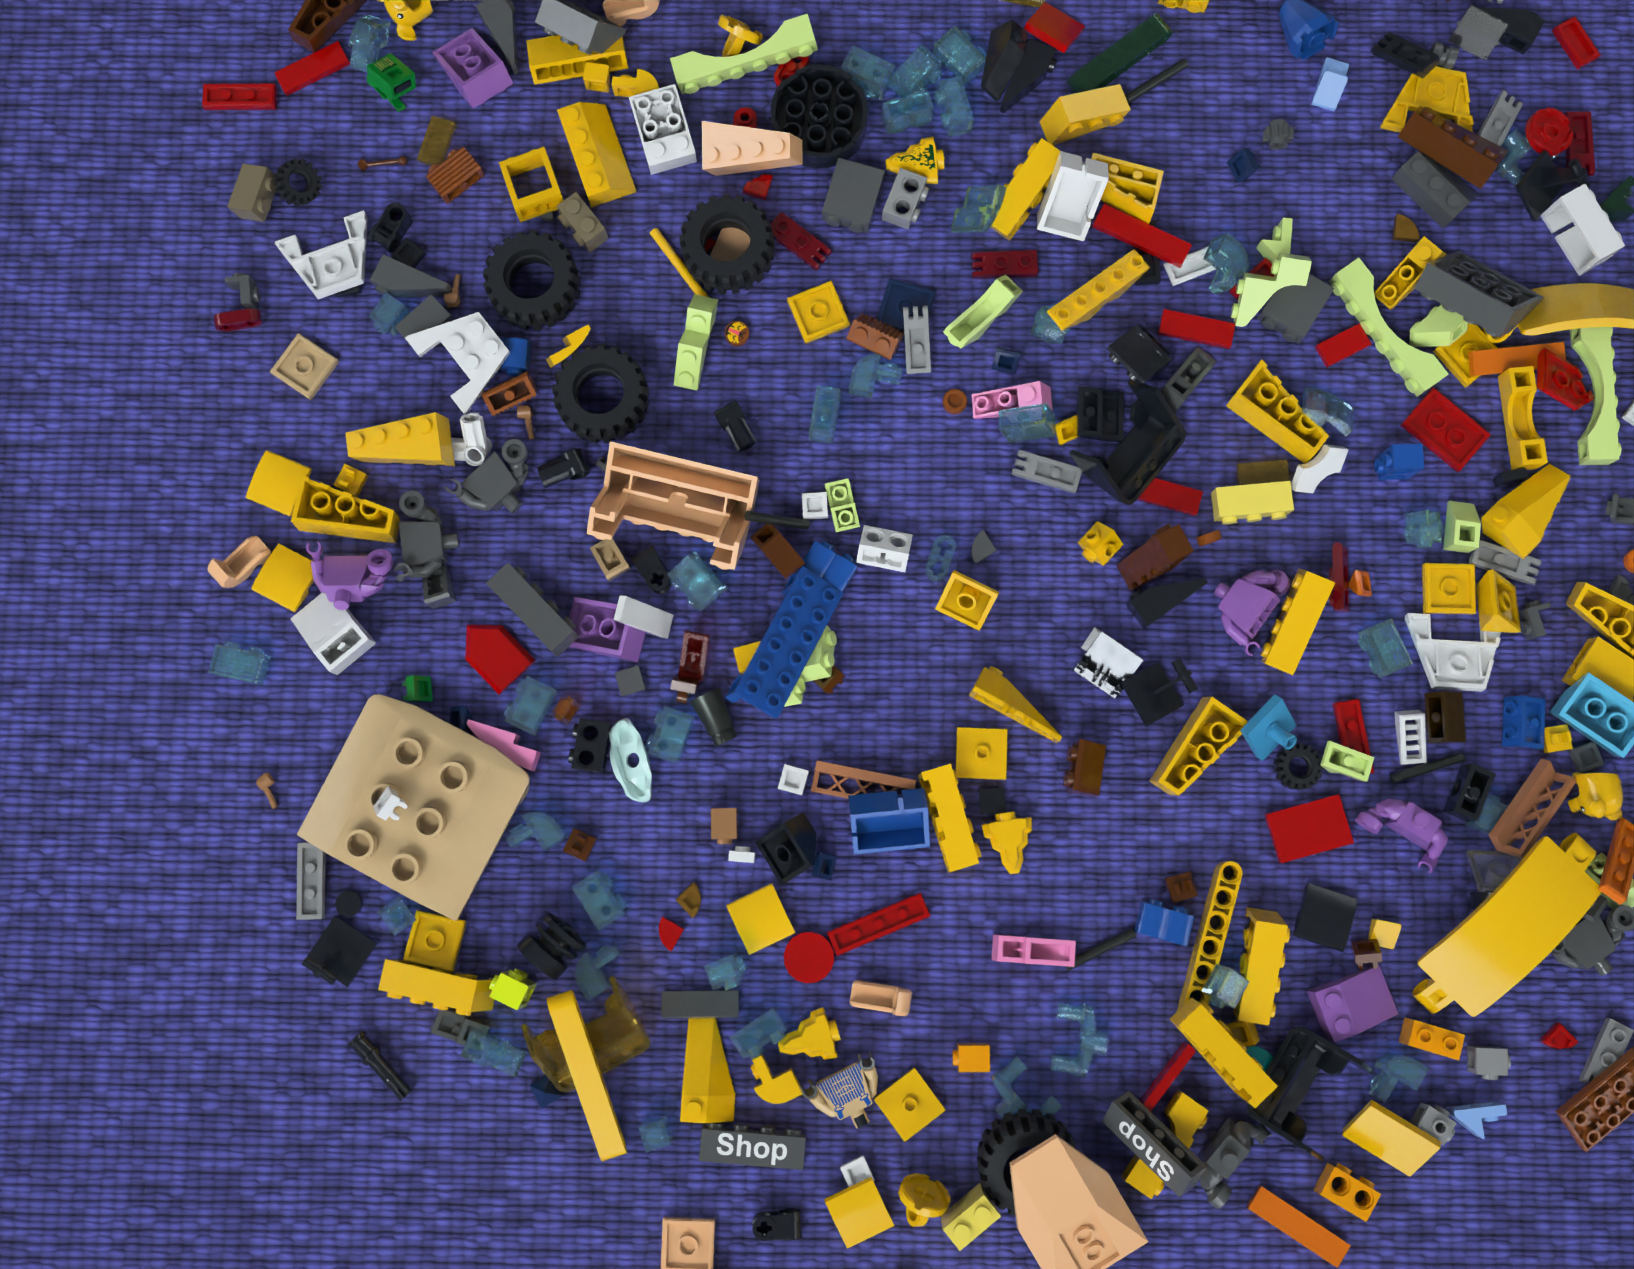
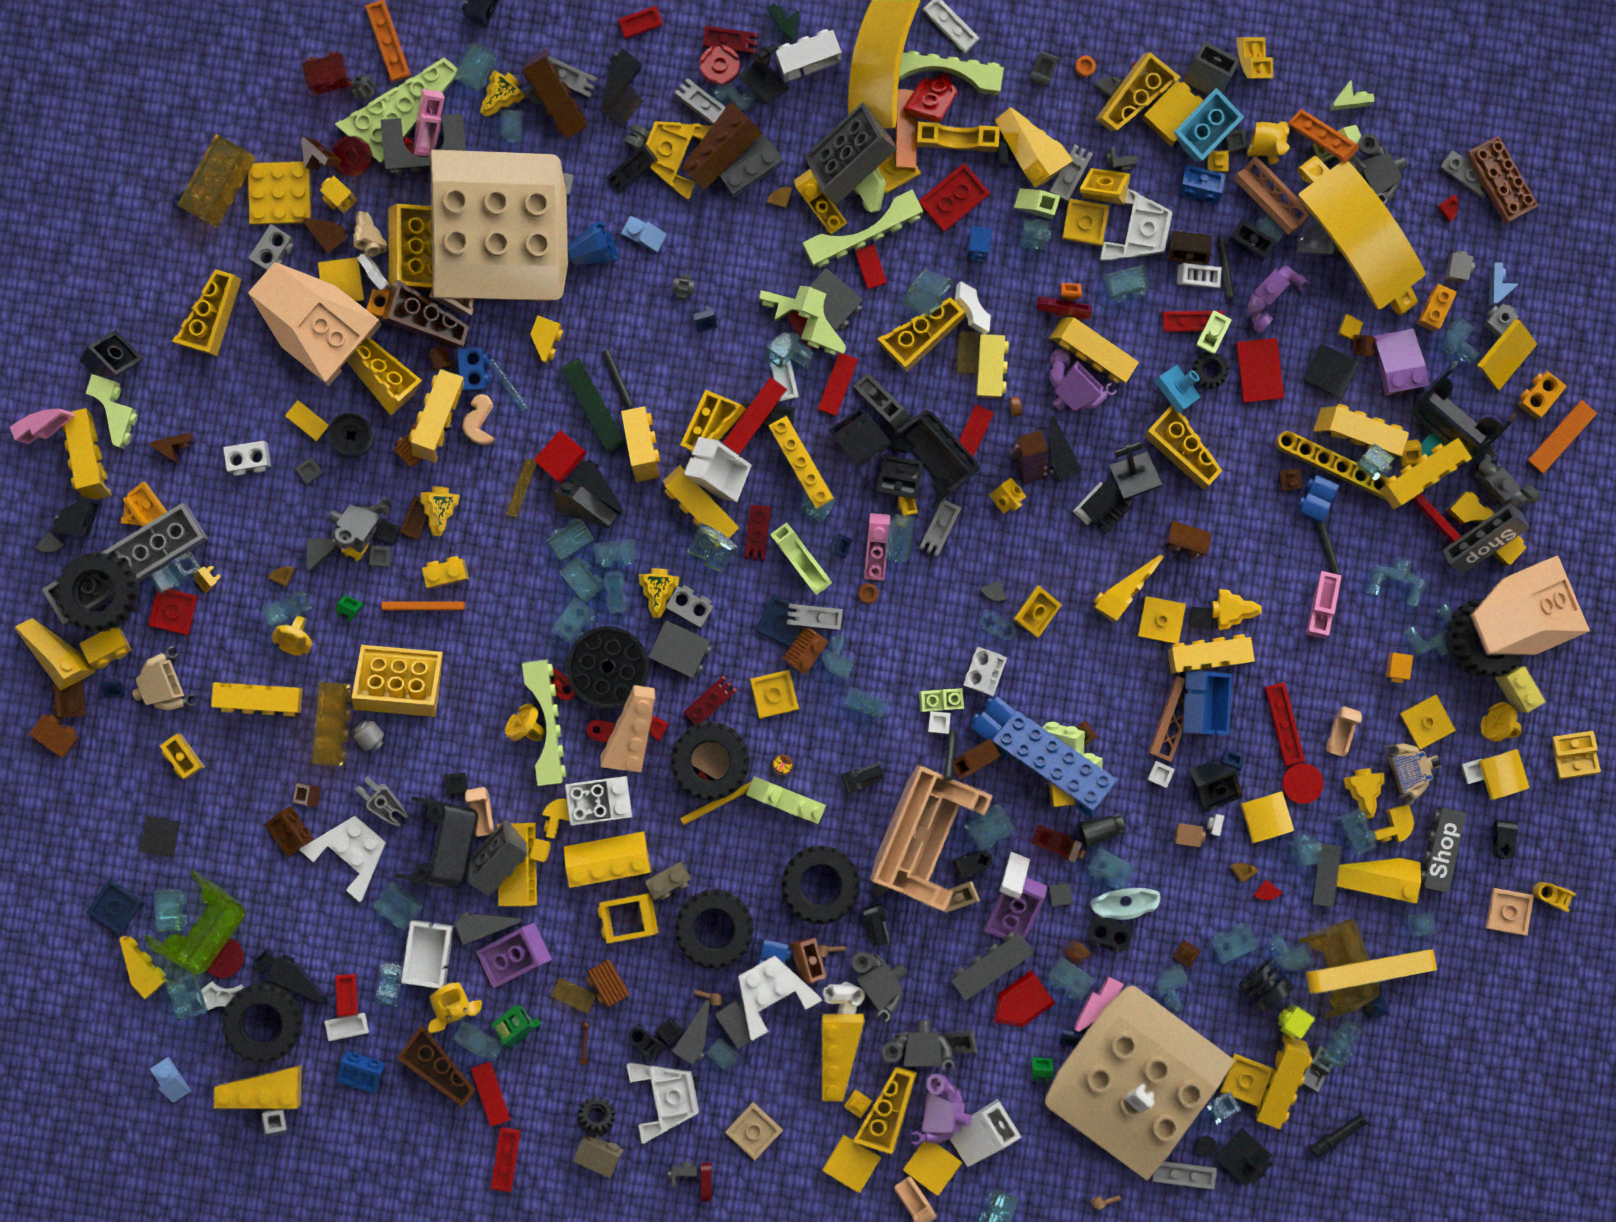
camera: 85 degrees left, 5 degrees up
(572, 342) = (773, 899): yellow slope -> none

